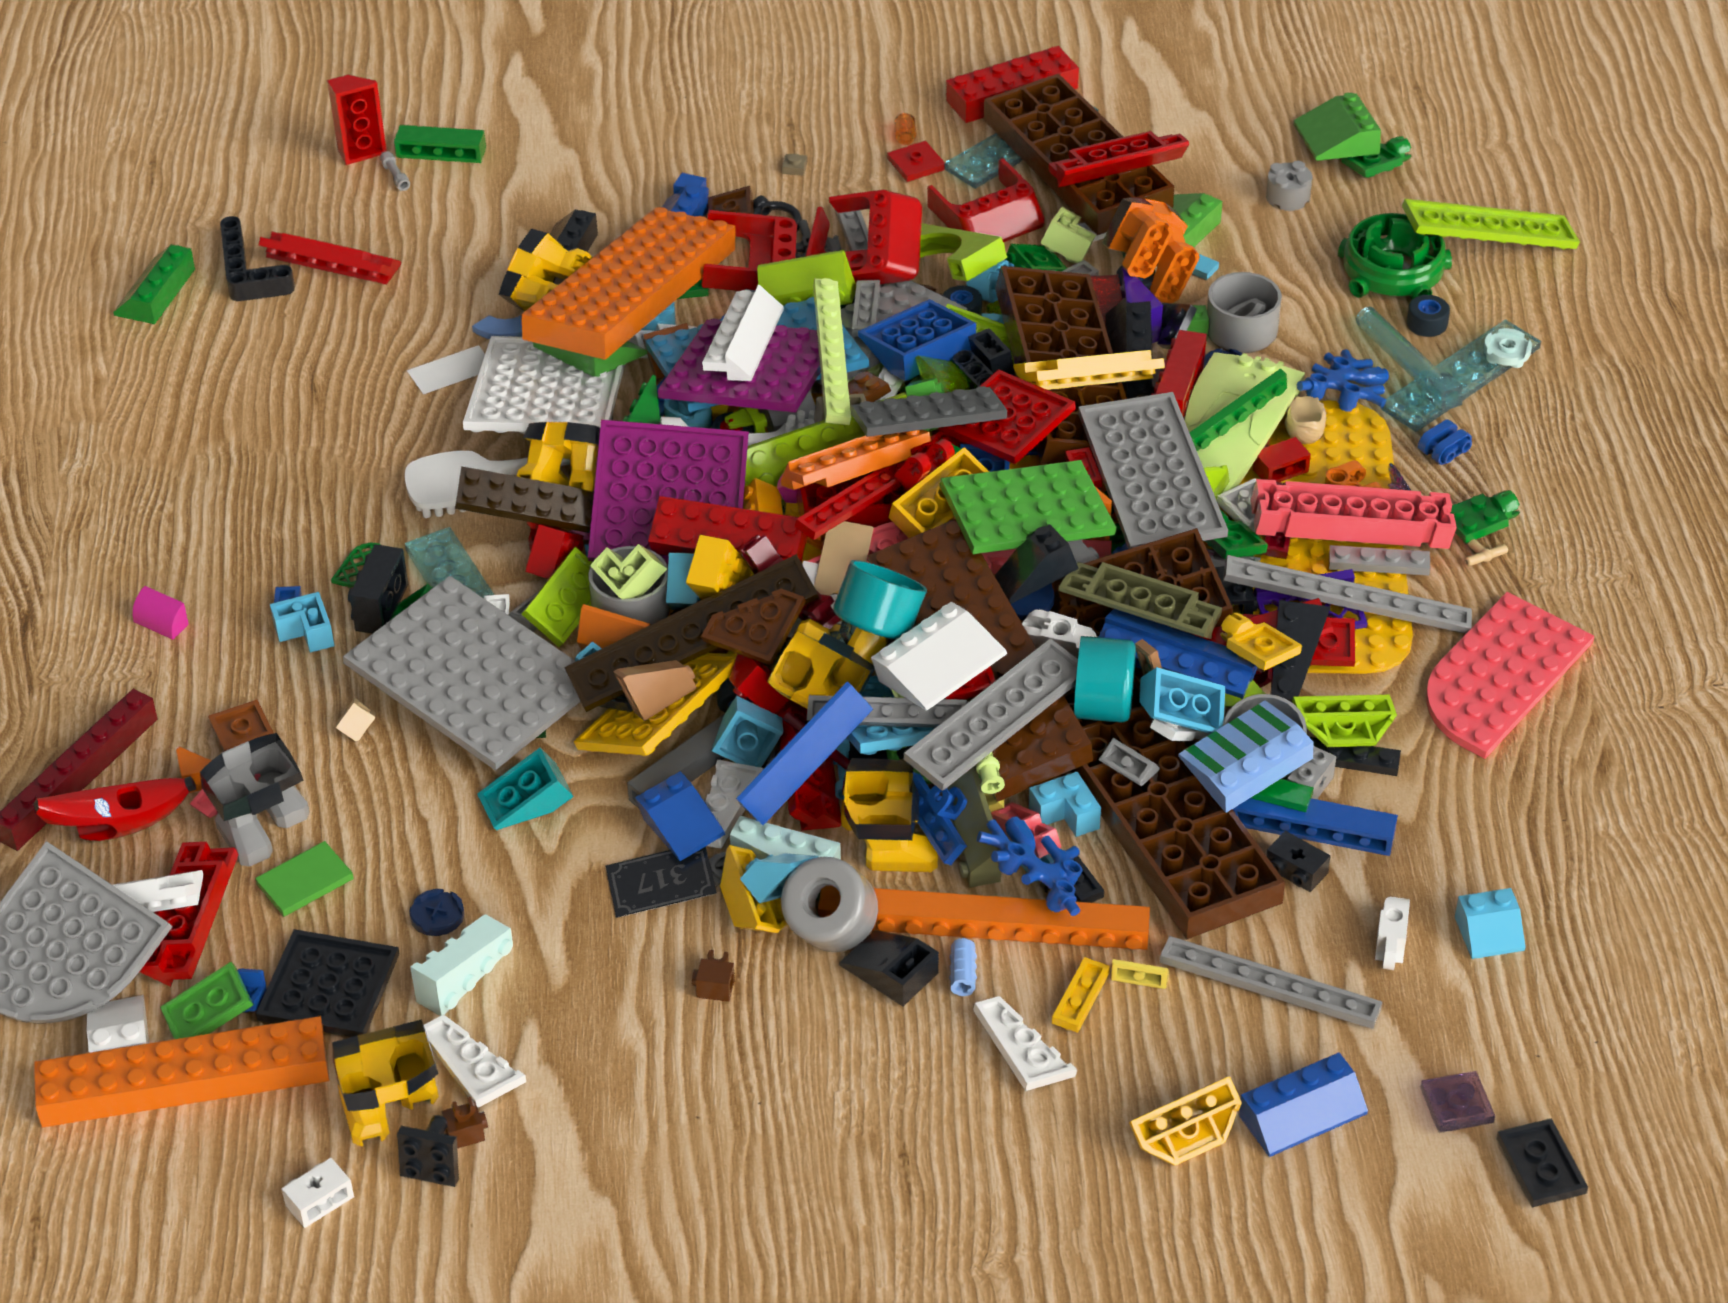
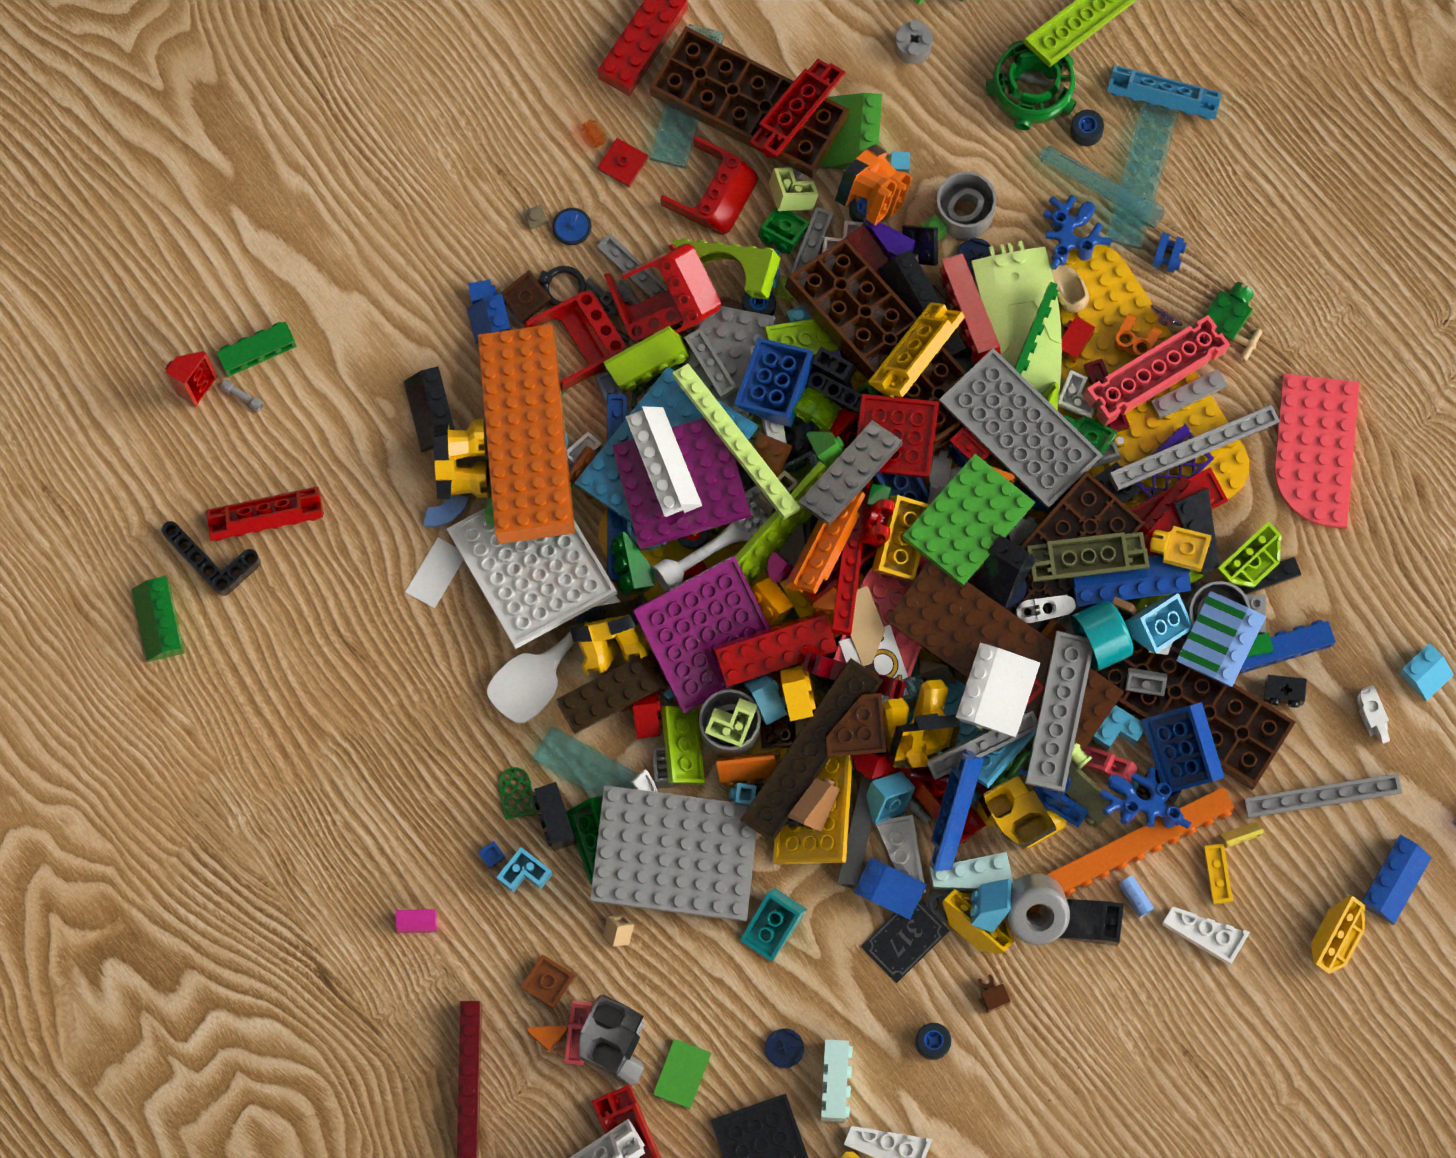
camera: 30 degrees left, 30 degrees up
(115, 809) = (529, 1101): red piece -> none
(608, 984) = (933, 1041): none -> black wheel
(823, 182) = (571, 226): none -> blue wheel
(878, 599) = (932, 667): teal piece -> none
(1127, 837) = (1183, 747): none -> blue slope
(1515, 355) = (1160, 146): light aqua plate -> none
(1551, 333) = (1164, 92): none -> dark azure slope

